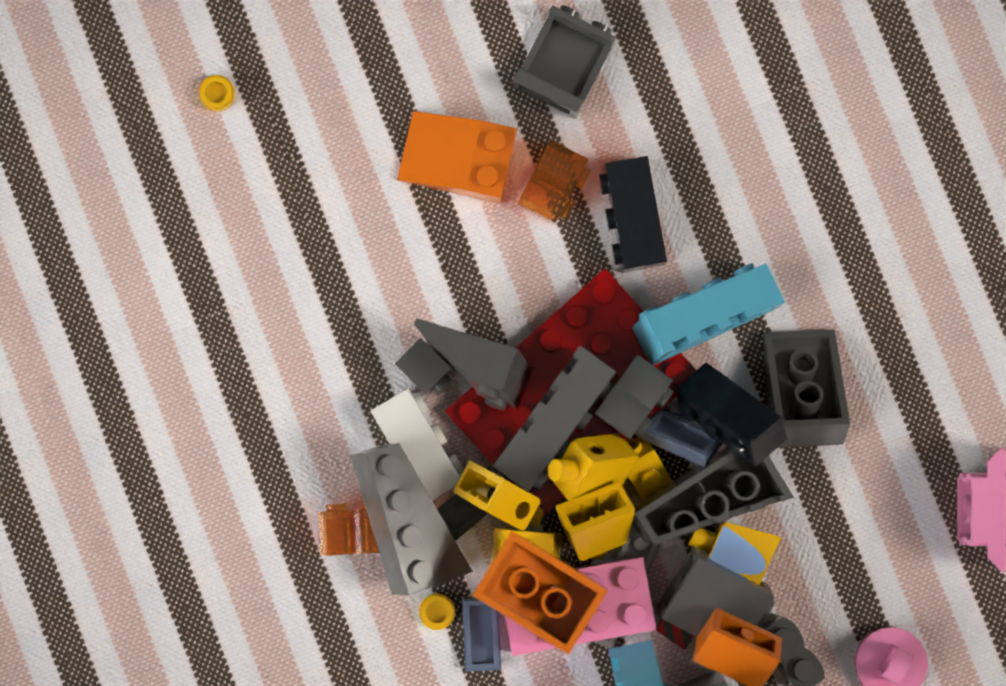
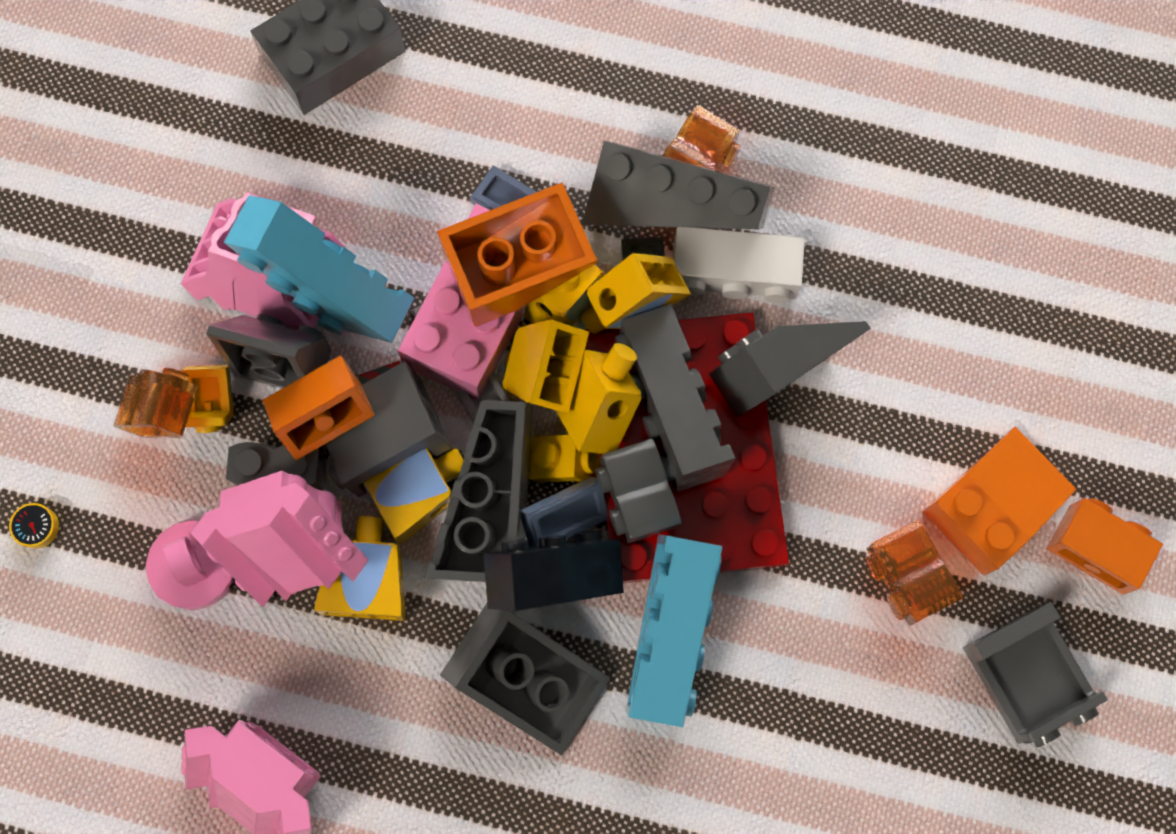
camera: 115 degrees right, 10 degrees down
(425, 368) = (810, 308): dark grey brick -> none
(437, 611) = (571, 174): yellow tile -> none
(442, 68) = (1105, 545): none -> orange brick
(633, 214) = (826, 630): black brick -> none
(817, 540) = (377, 588): none -> yellow torso
(837, 610) = (278, 537): none -> bright pink slope

